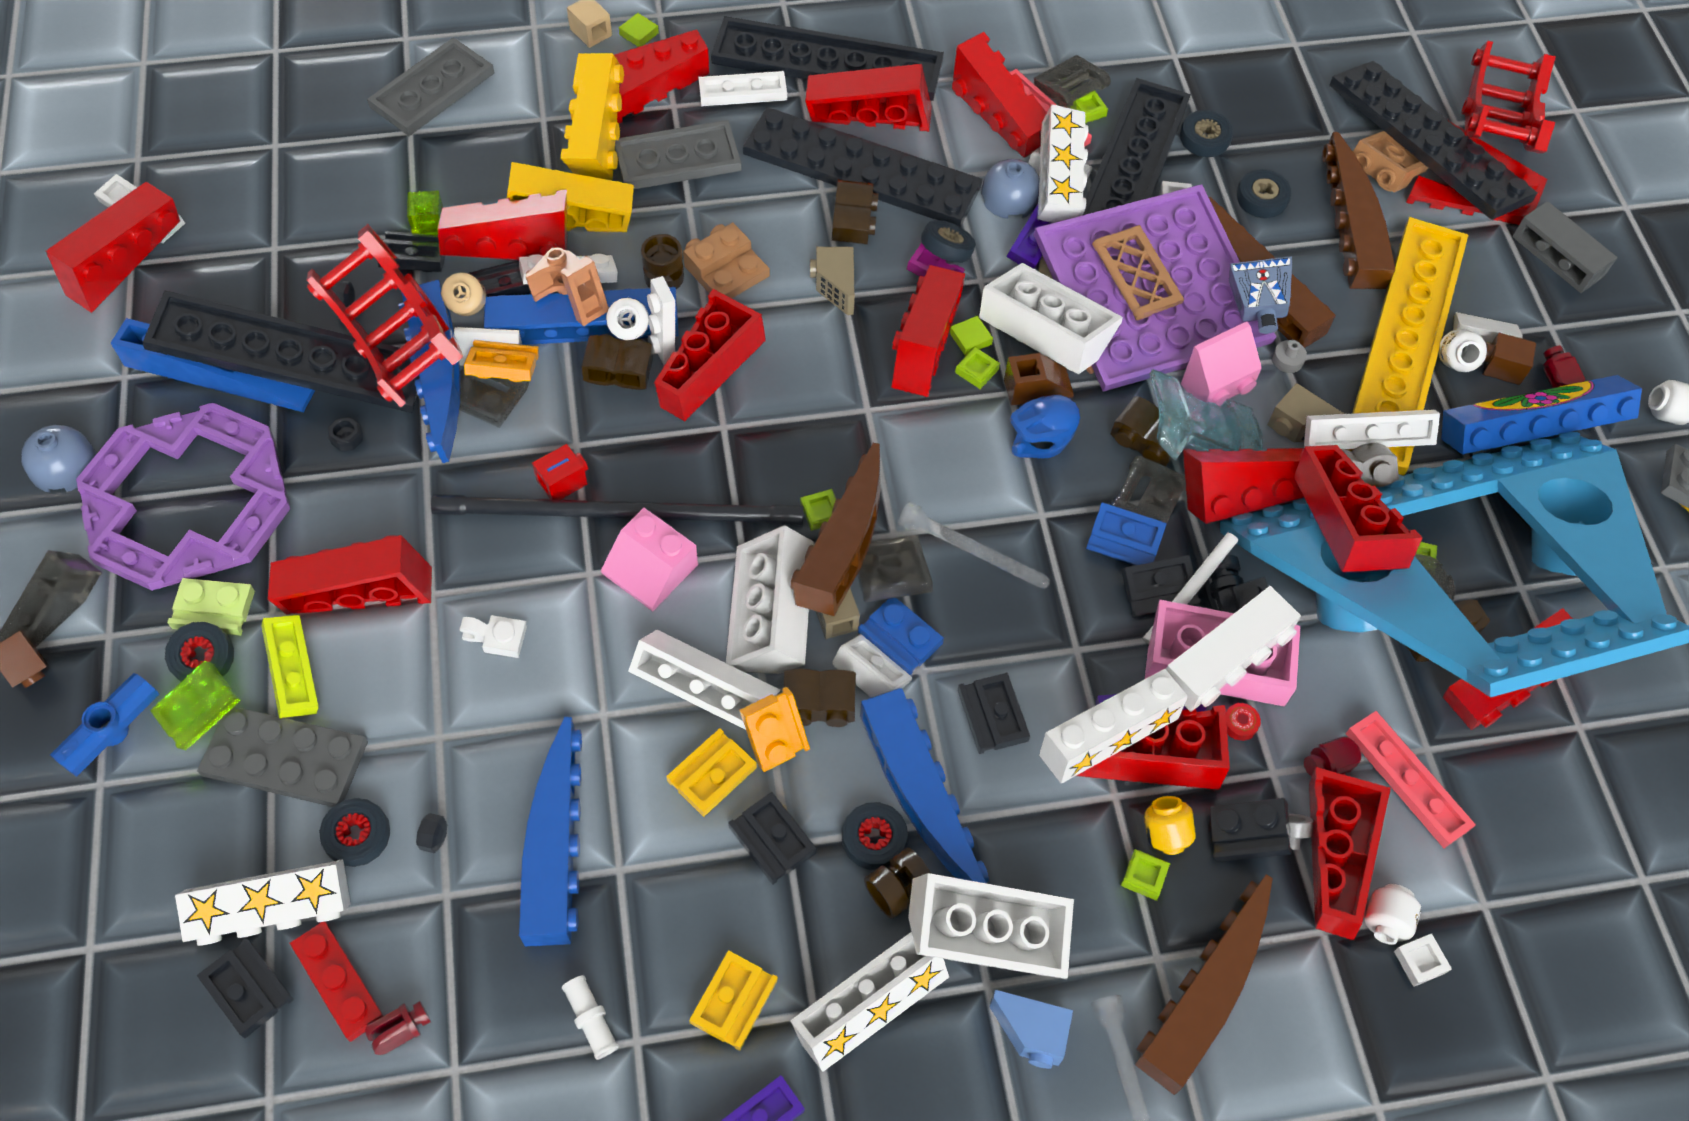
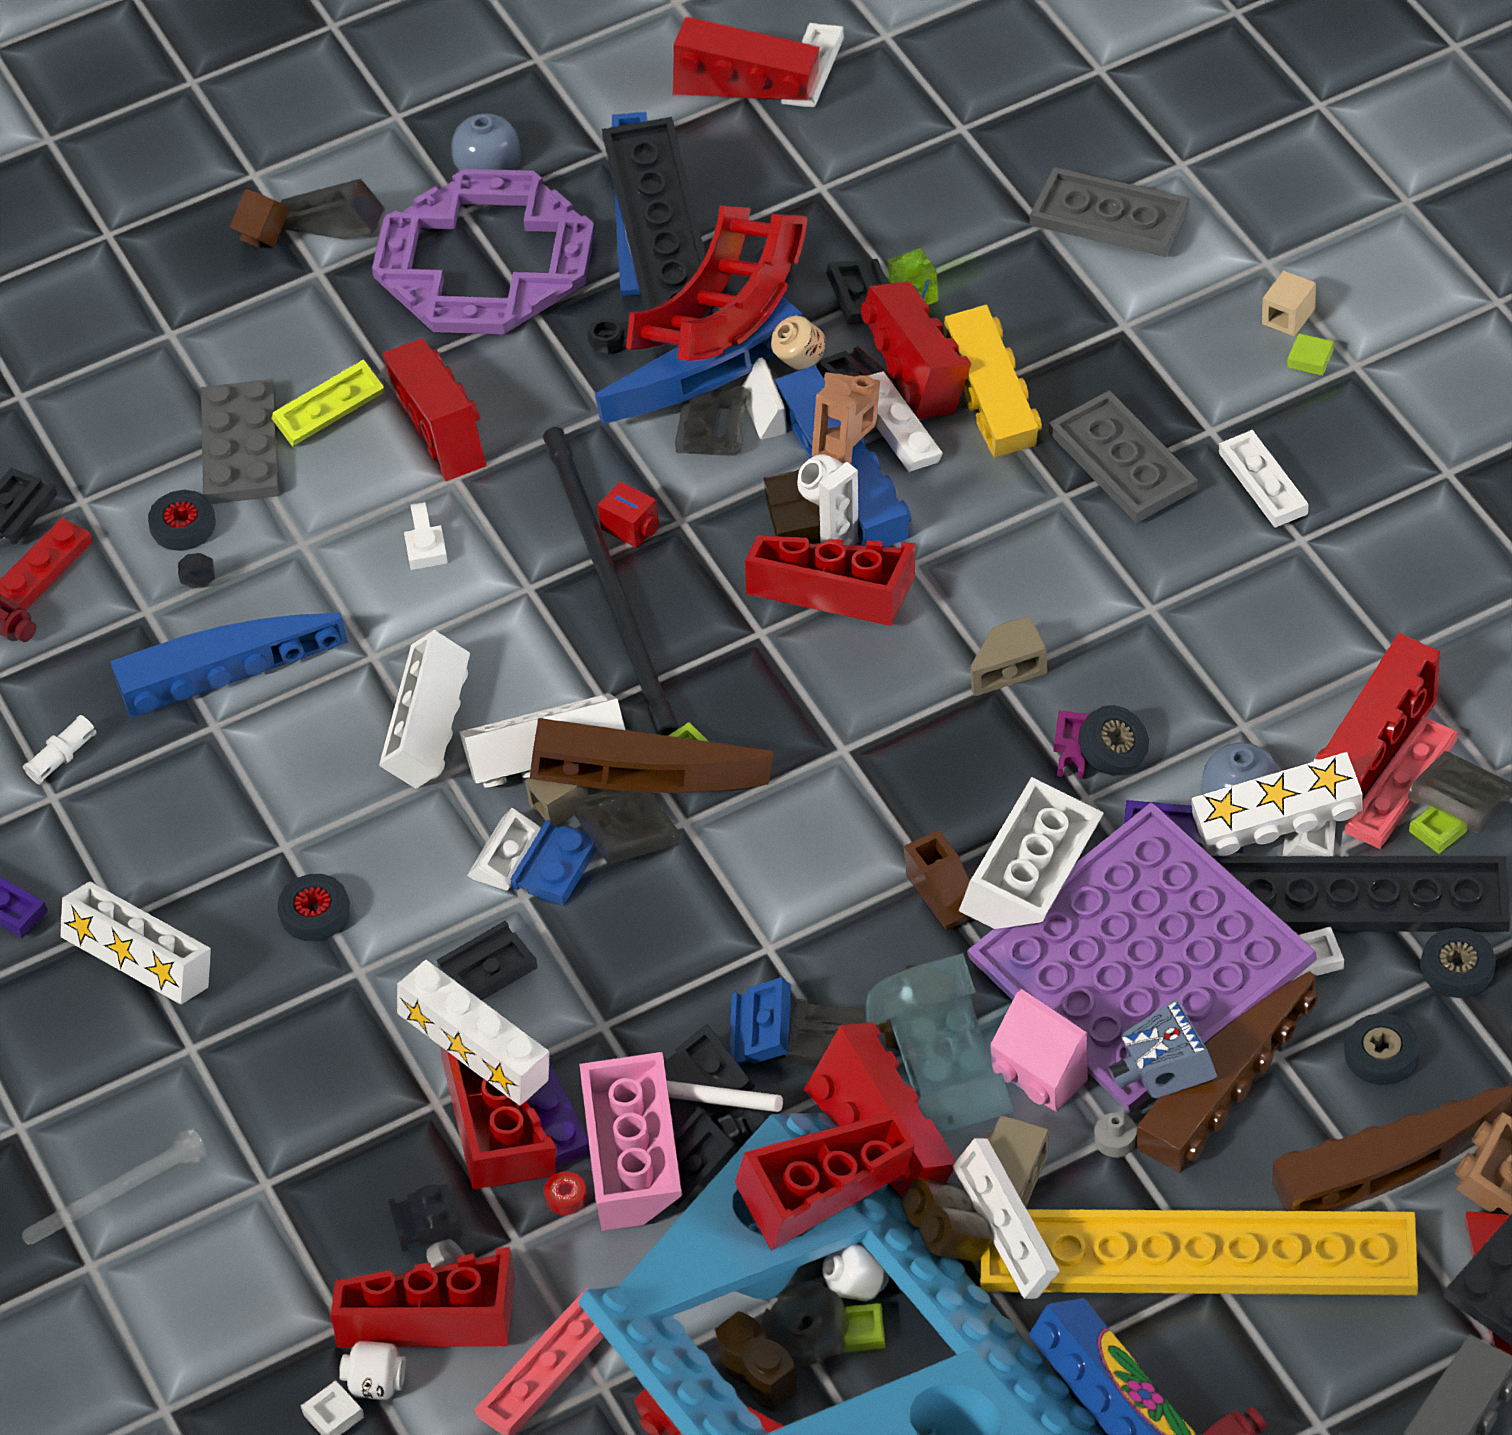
camera: 80 degrees right, 10 degrees down
(90, 739) = (222, 306): blue piece -> none
(187, 638) = (313, 324): black bush -> none
(195, 705) = (261, 355): clear neon green plate -> none
(212, 602) = (373, 325): yellowish green plate -> none
(263, 901) = (90, 482): white brick -> none
(501, 361) = (740, 411): light orange plate -> none
(594, 116) = (1104, 351): yellow wedge -> none
(649, 559) = (558, 623): bright pink slope -> none
(659, 68) = (1229, 382): red wedge -> none
(663, 258) = (943, 495): dark brown wheel -> none
(711, 772) = (334, 754): yellow plate -> none
(725, 261) = (983, 553): medium nougat plate -> none
(733, 1000) = (108, 848): yellow plate -> none
(772, 838) = (280, 824): black plate -> none
(774, 729) = (387, 778): light orange plate -> none
(809, 52) = (1361, 538): black plate -> none
(823, 695) = (448, 811): dark brown brick -> none
(836, 156) = (1204, 632): black plate -> none
(853, 212) = (1117, 640): dark brown brick -> none
(871, 97) = (1307, 600): red wedge -> none
(887, 887) = (262, 934): dark brown wheel -> none
(915, 519) = (704, 827): clear piece -> none
(919, 782) = (378, 921): blue slope -> none
(926, 329) = (968, 755): red wedge -> none
(971, 334) = (989, 809): lime tile -> none
(977, 367) = (952, 824): lime tile -> none
(991, 925) = (229, 1005): white slope -> none
(1033, 1027) = (150, 1086): medium blue slope -> none
(1041, 420) = (873, 897): blue helmet -> none
(1145, 874) = (351, 1148): lime tile -> none
(1148, 253) = (1148, 952): medium nougat window -> none
(1170, 825) = (403, 1142): yellow head -> none
(1208, 995) = (236, 1225): reddish brown slope -> none
(1233, 647) = (611, 1118): white brick -> none
(1335, 755) = (546, 1284): dark red arm -> none
(1462, 350) = (1198, 1307): white head -> none
(1485, 327) = (1267, 1343): white slope -> none
(1509, 358) = (1219, 1368): reddish brown brick -> none

